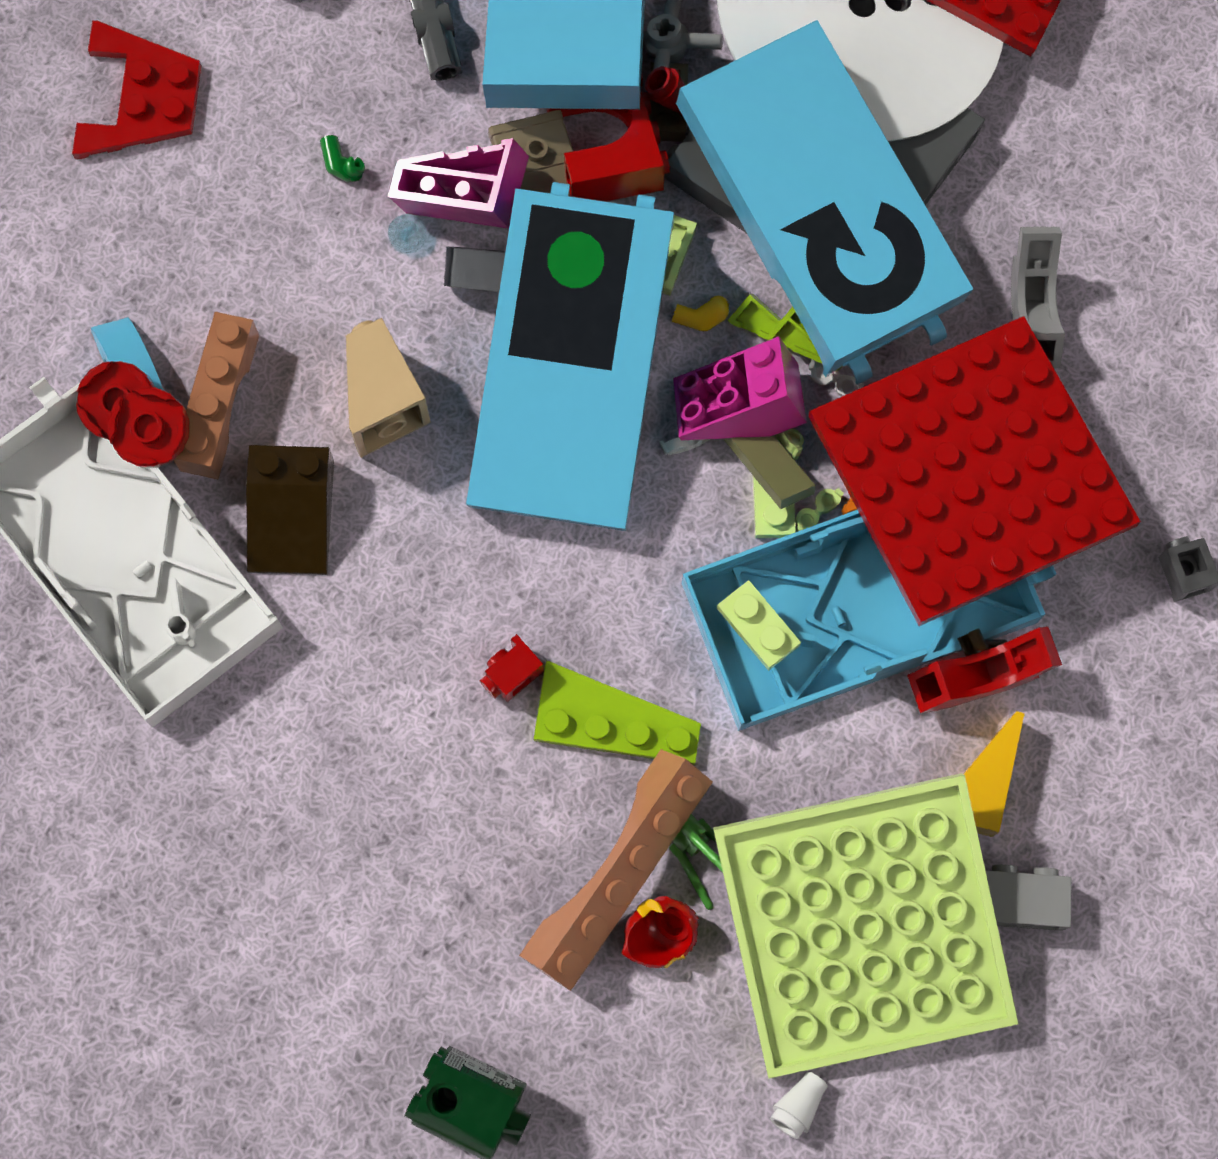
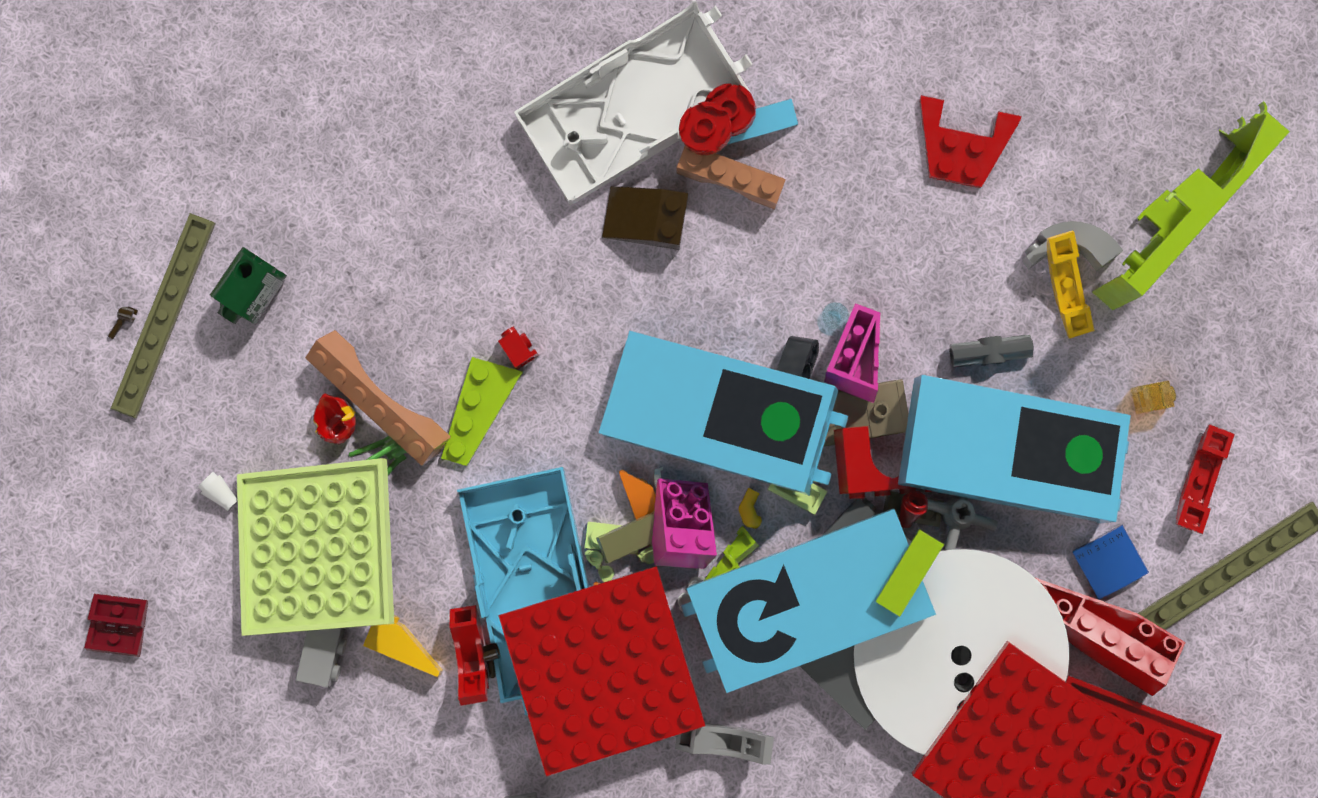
camera: 105 degrees right, 10 degrees up
(338, 165) = (892, 274): green arm -> none
(381, 389) = (718, 282): tan slope -> none
(704, 466) = (640, 494): none -> orange slope
(758, 625) = (518, 510): yellowish green plate -> none
(766, 56) = (909, 573): none -> lime tile

